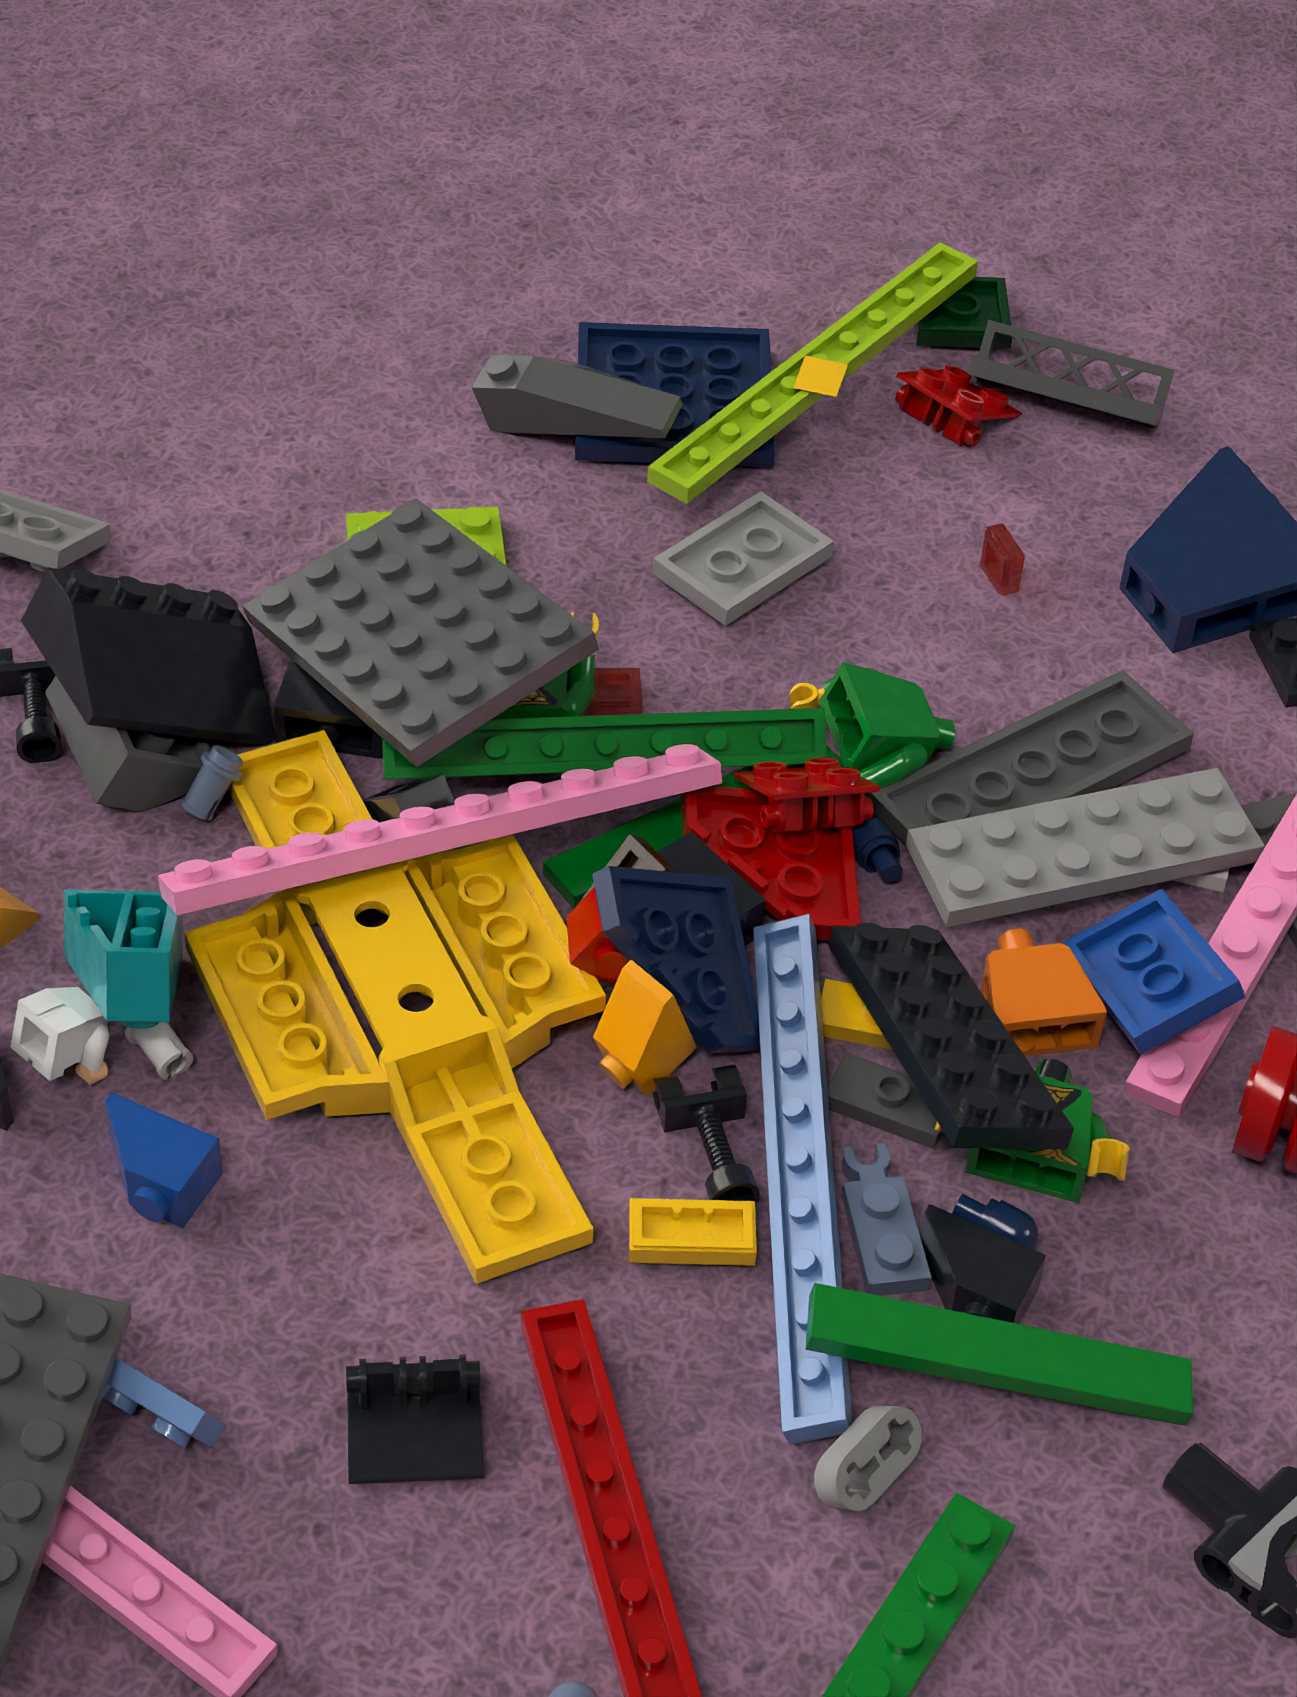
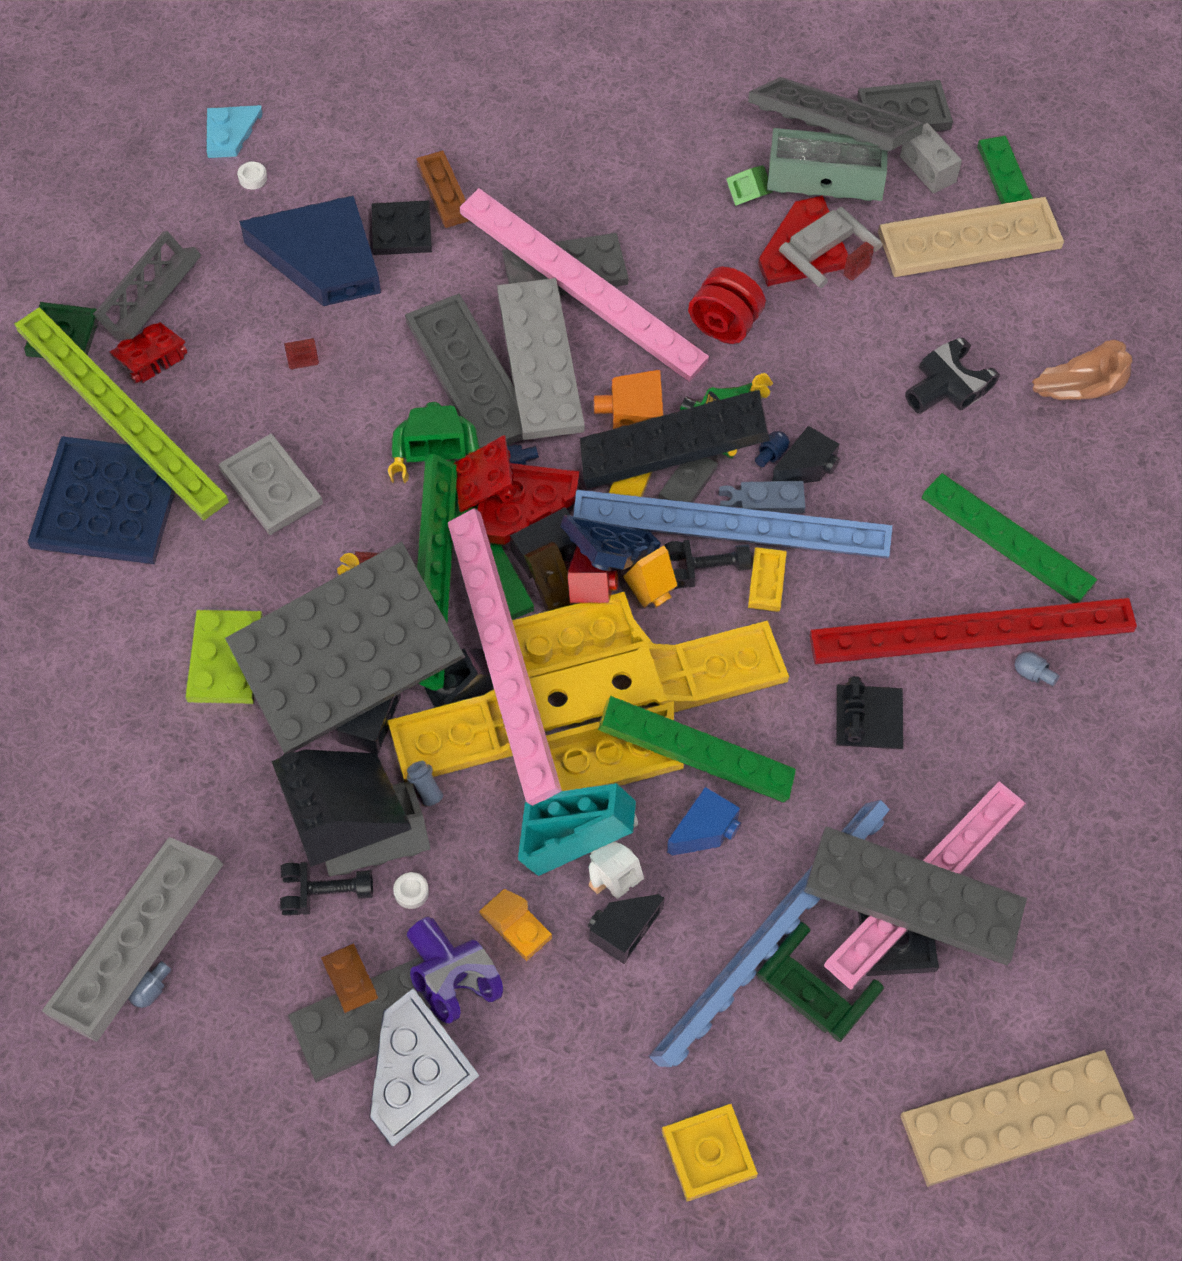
camera: 80 degrees left, 15 degrees up
(34, 801) = (411, 890): none -> white tile
(289, 1124) = (697, 749): none -> green plate
(569, 399) = (113, 551): dark grey wedge -> none
(820, 376) = (136, 409): yellow sticker -> none
(863, 1450) = (905, 523): light grey beam -> none
(999, 1354) = (855, 460): green tile -> none
(1154, 971) = (633, 344): blue plate -> none

